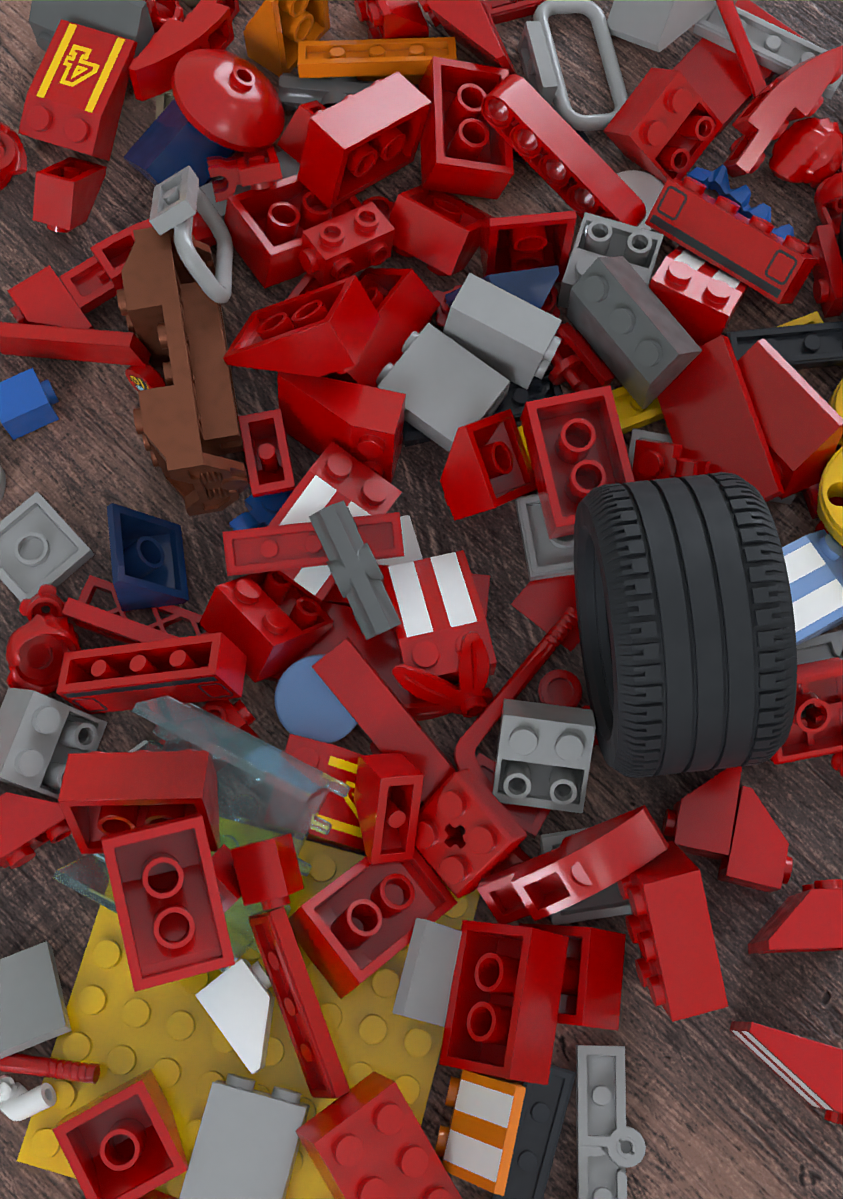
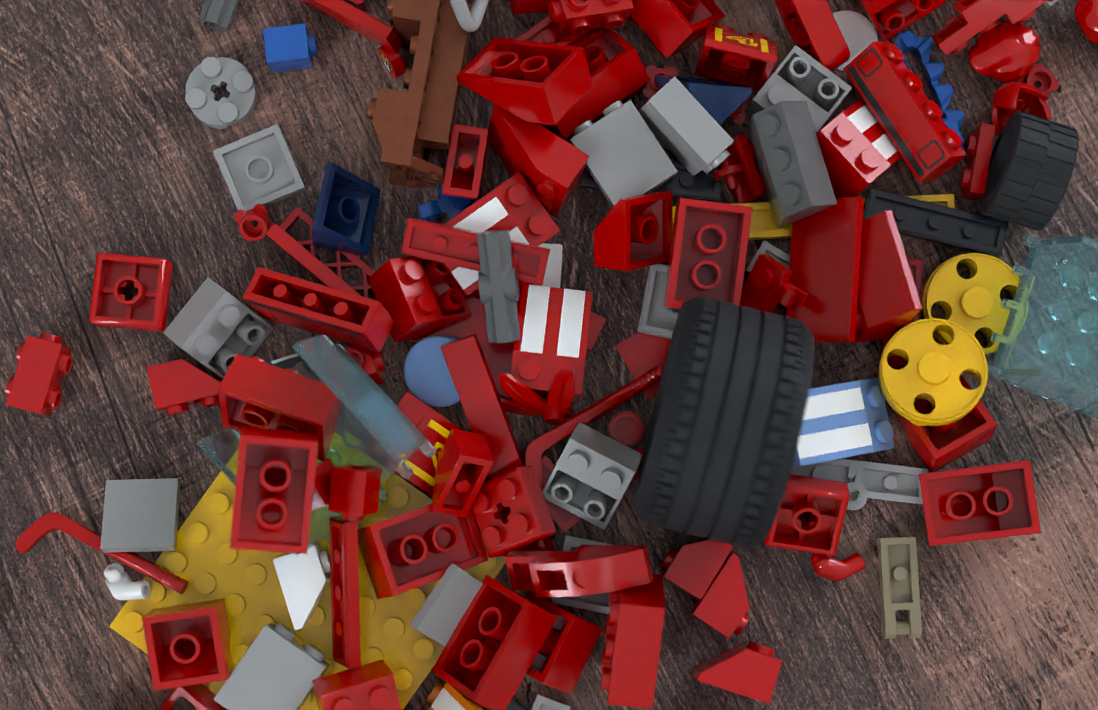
camera: 15 degrees right, 10 degrees up
(38, 651) = (238, 258): red hair -> none

